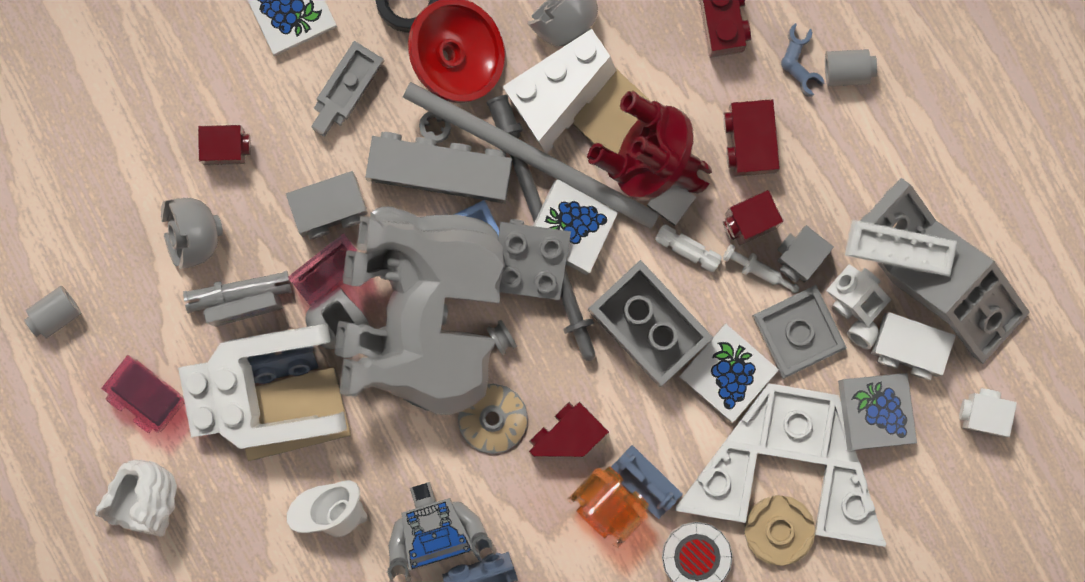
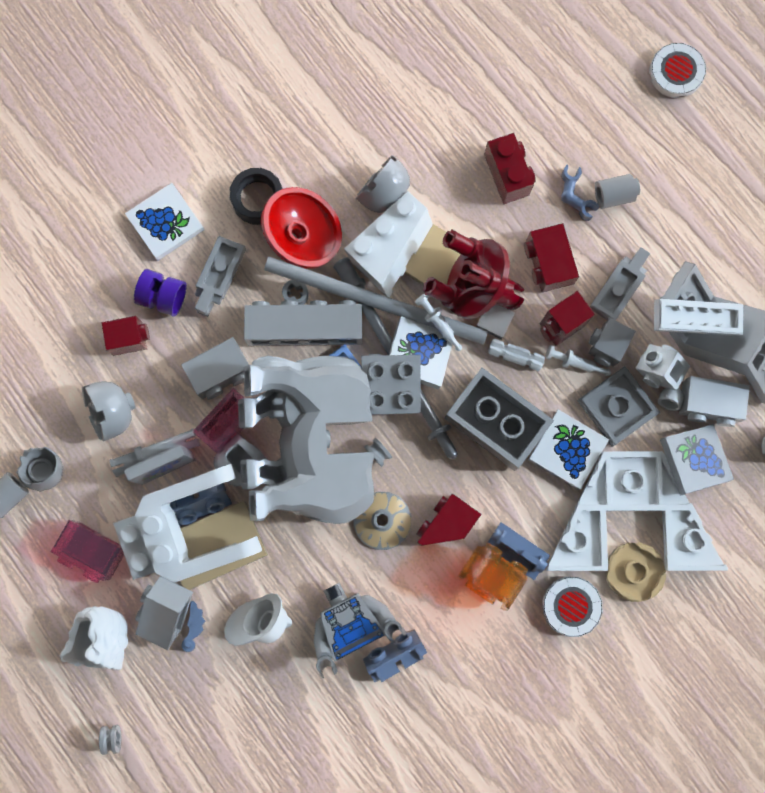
camera: 10 degrees left, 5 degrees down
(99, 288) = (40, 469): none -> light grey hair
(221, 480) = (162, 612): none -> light grey brick
(253, 504) = (195, 625): none -> sand blue piece
(284, 105) = (163, 293): none -> dark purple wheel
(597, 188) = (439, 322): none -> white piece
(830, 187) = (620, 286): none -> light grey hinge

